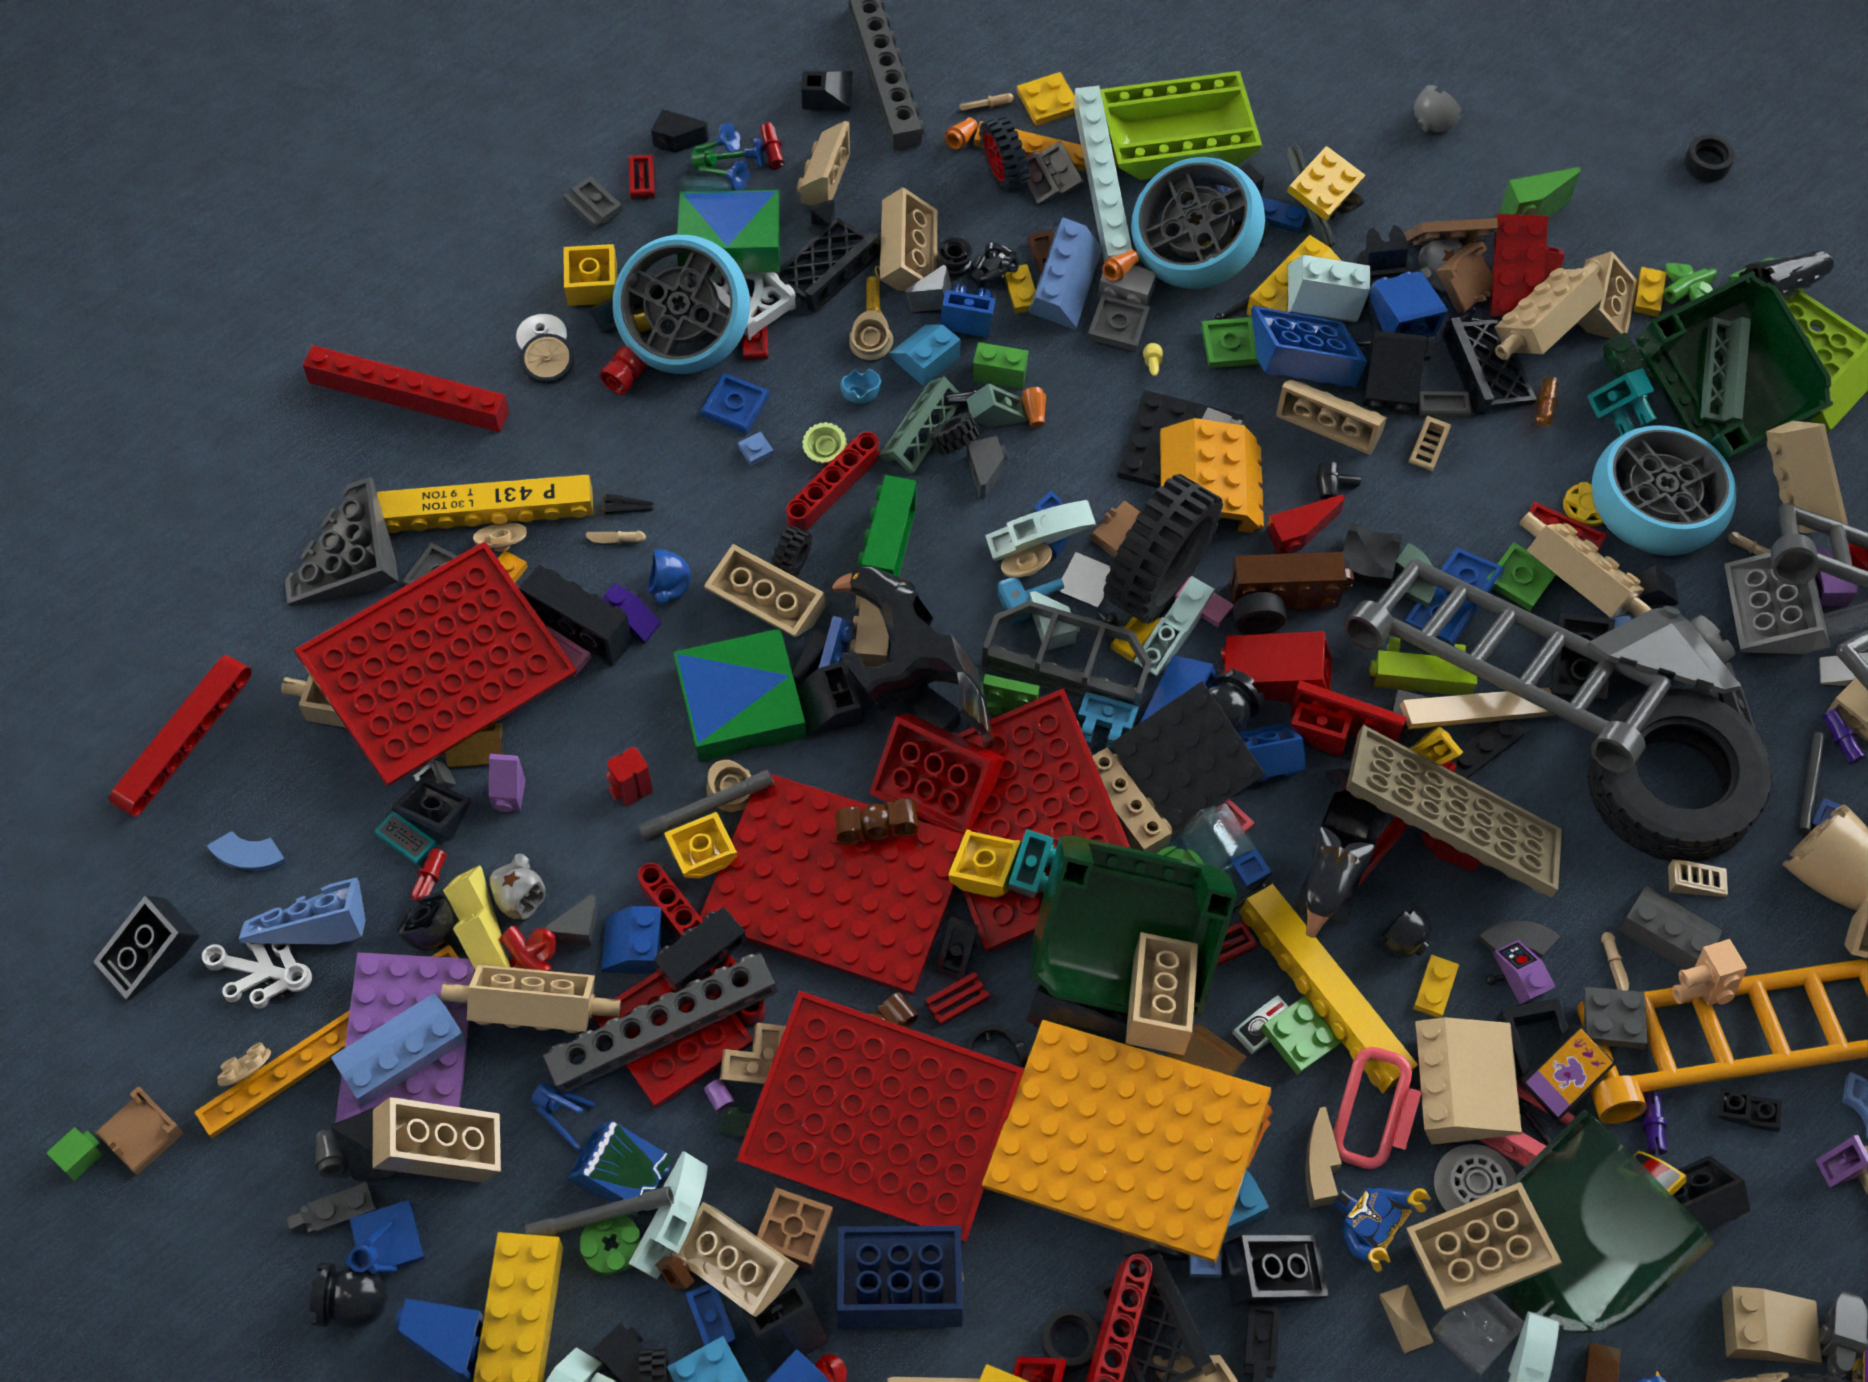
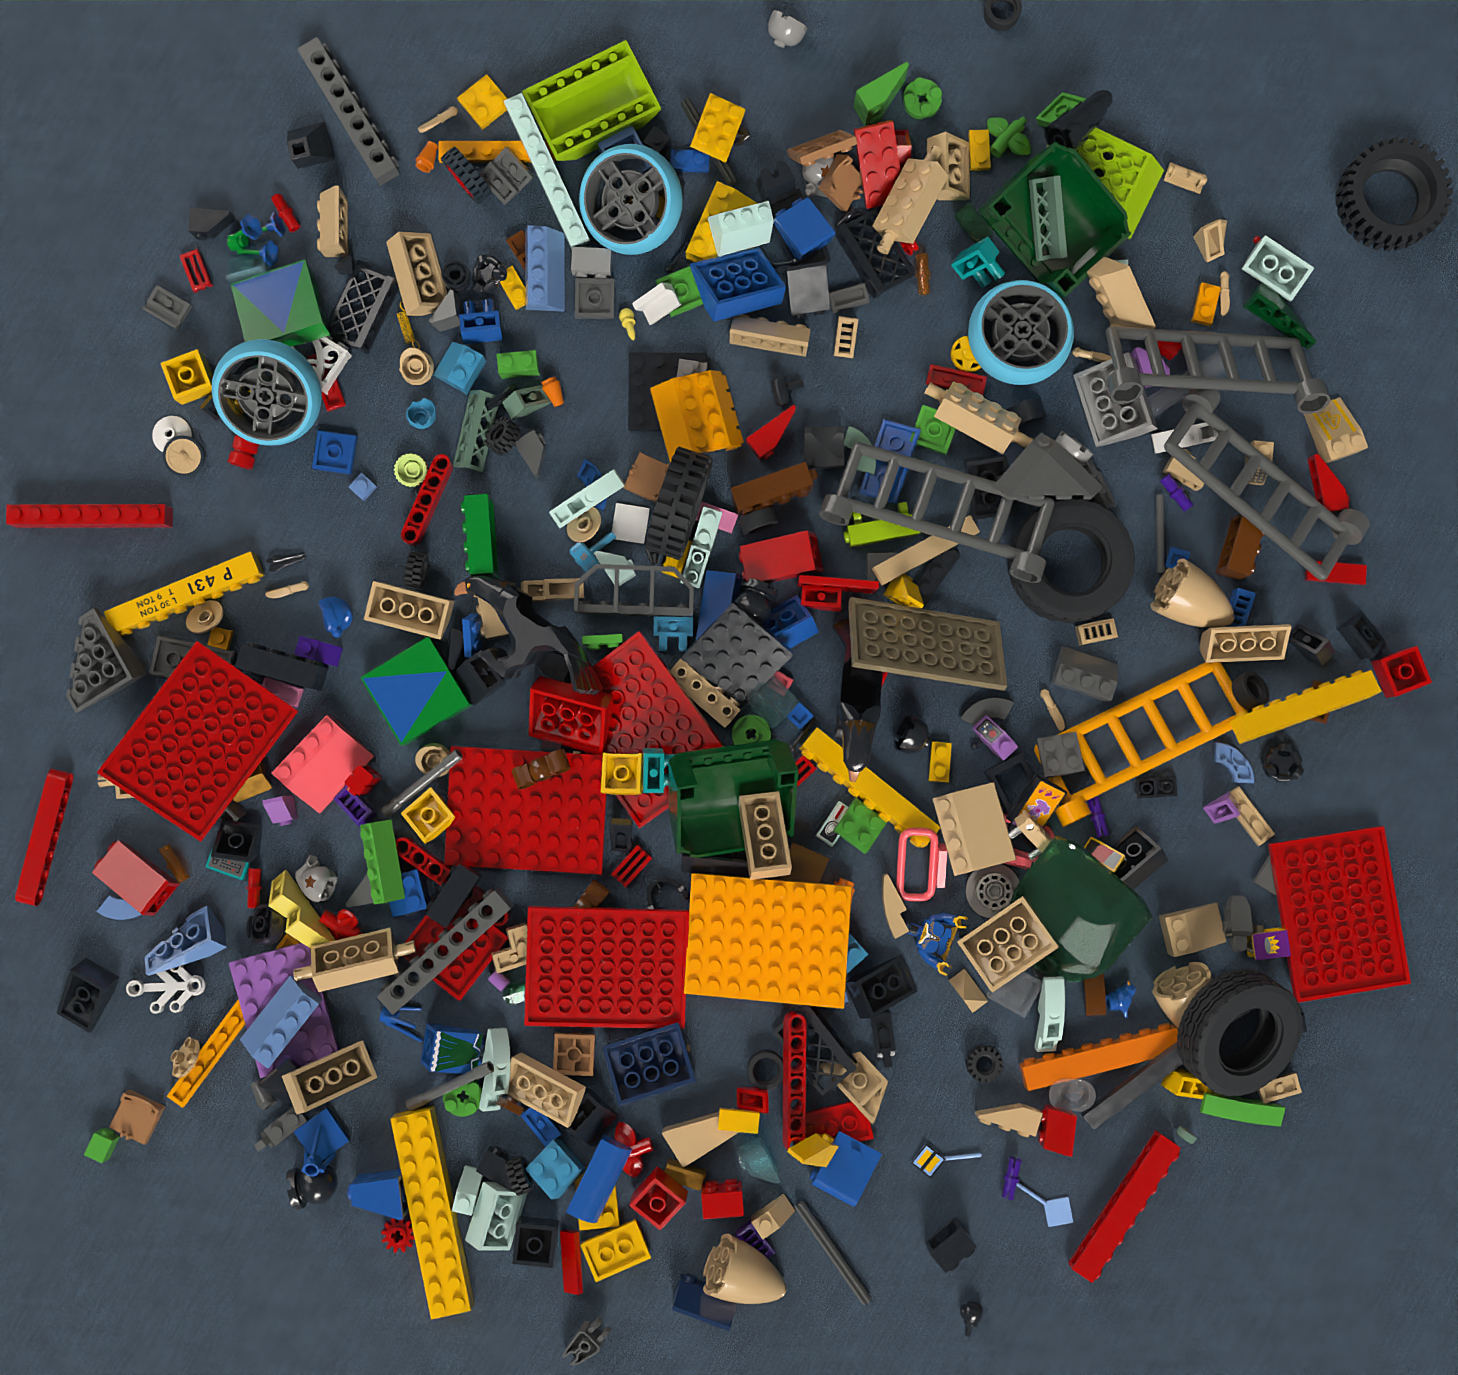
camera: 20 degrees left, 25 degrees up
(279, 815) = (135, 878): none -> slope
(335, 815) = (174, 863): none -> clear orange pin
(572, 746) = (322, 763): none -> coral slope
(612, 829) = (365, 813): none -> dark purple slope
(617, 883) = (382, 861): none -> bright green slope
(963, 624) = (551, 589): none -> tan slope
(1119, 265) = (582, 254): orange cone -> none
(1197, 342) = (657, 302): none -> white panel
(1536, 366) = (909, 248): none -> red bush
(1553, 1097) = (1033, 832): none -> tan piece
(1592, 211) = (930, 91): none -> bright green plate
(1713, 977) = (1119, 710): light nougat brick -> none

